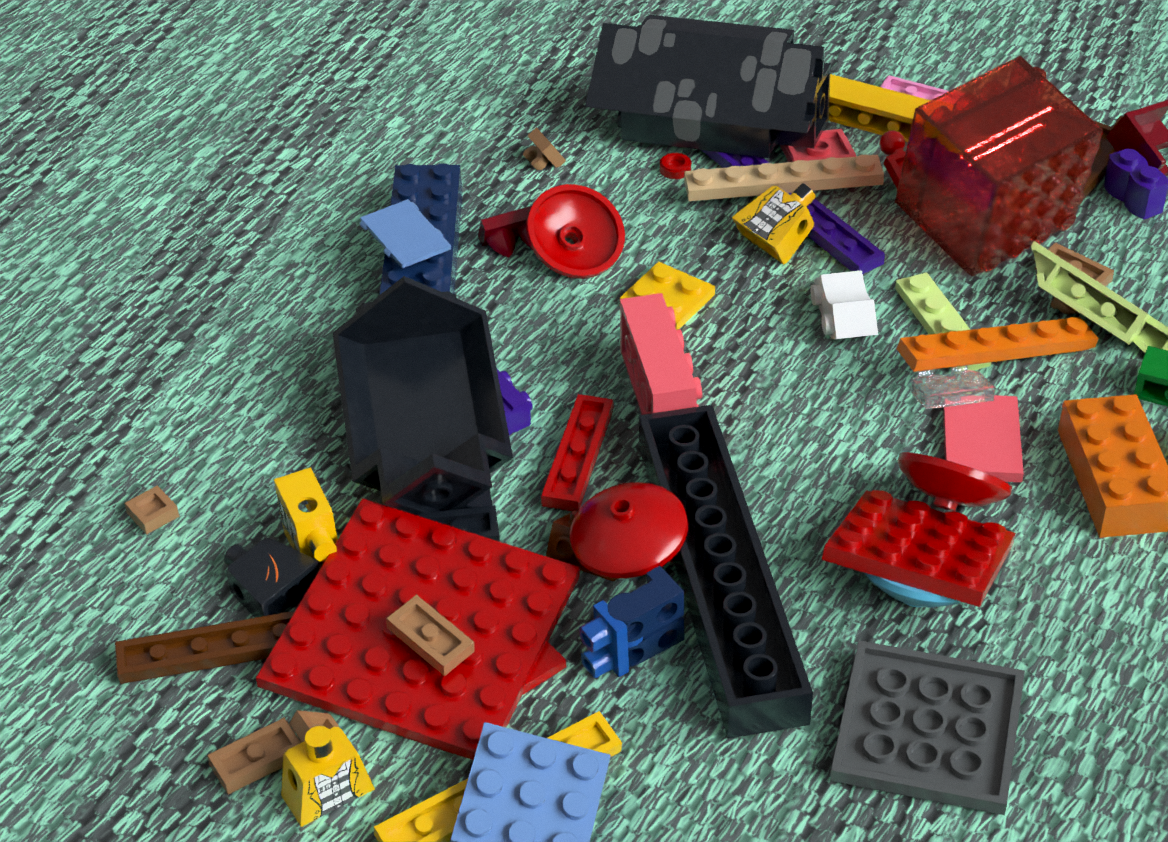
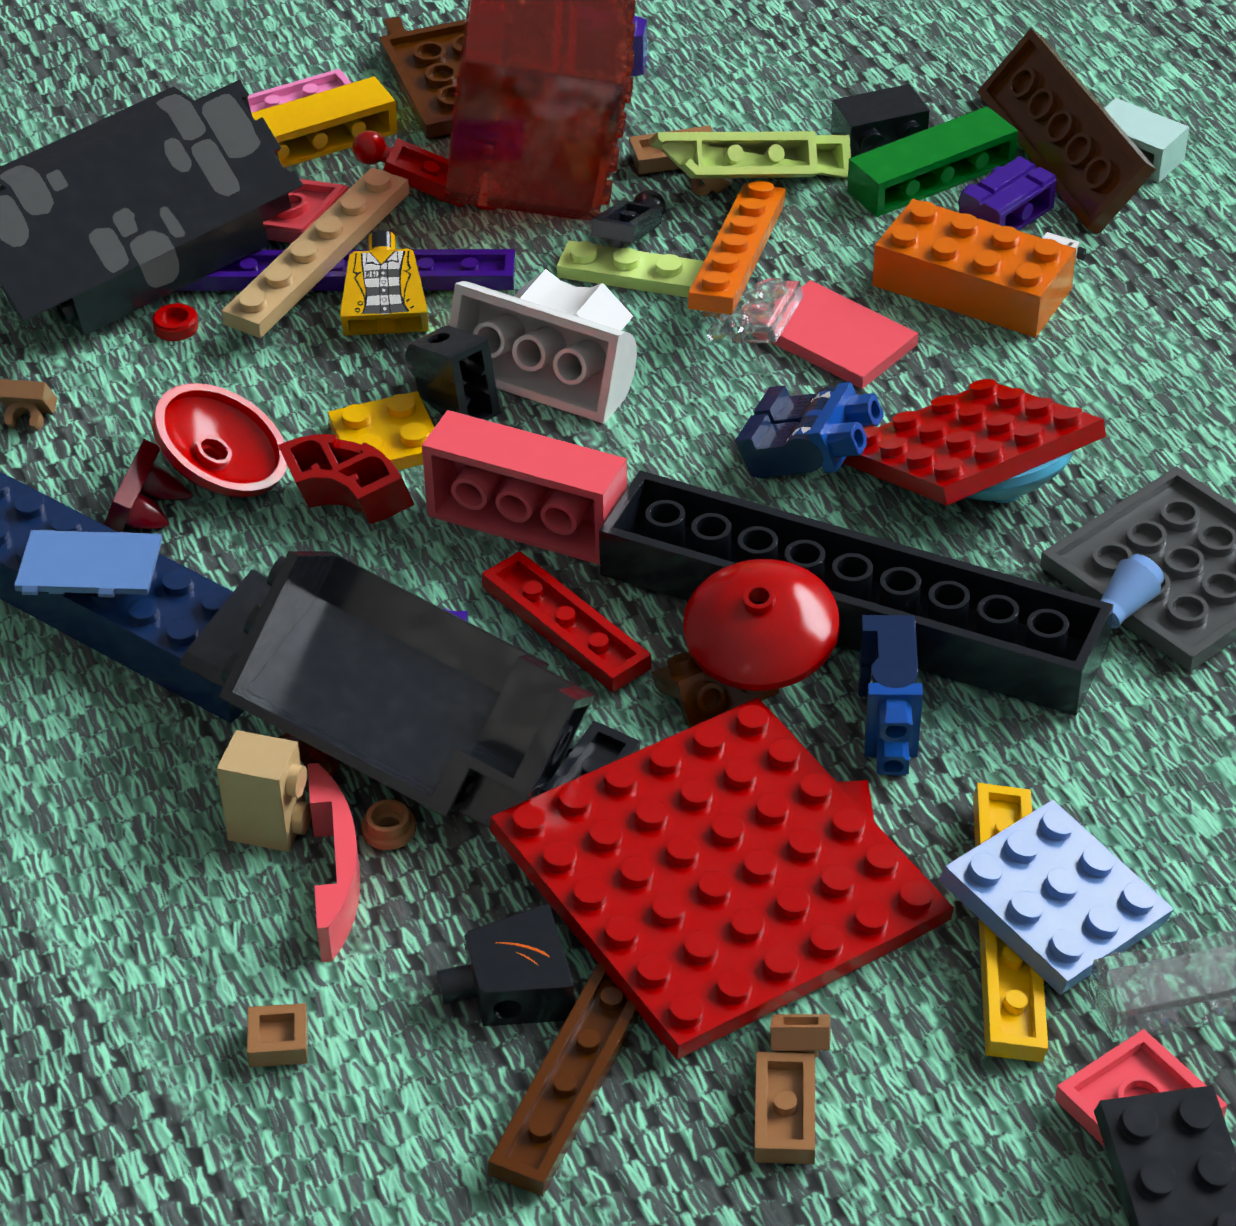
camera: 55 degrees left, 0 degrees up
(256, 482) = (336, 902): none -> coral slope
(306, 531) = (473, 879): yellow torso -> none
(308, 398) = (263, 791): none -> tan brick
(322, 774) = (883, 1031): yellow torso -> none
(339, 469) = (385, 814): none -> medium nougat plate
(430, 635) = (772, 853): medium nougat plate -> none
(596, 294) = (346, 475): none -> red brick
(732, 278) = (455, 372): none -> black torso
(794, 313) = (548, 351): none -> white brick
(849, 699) = (1132, 586): none -> light blue cone
(850, 468) = (807, 430): none -> hips
(952, 482) = (915, 371): red dish -> none
(974, 285) = (629, 220): none -> black plate

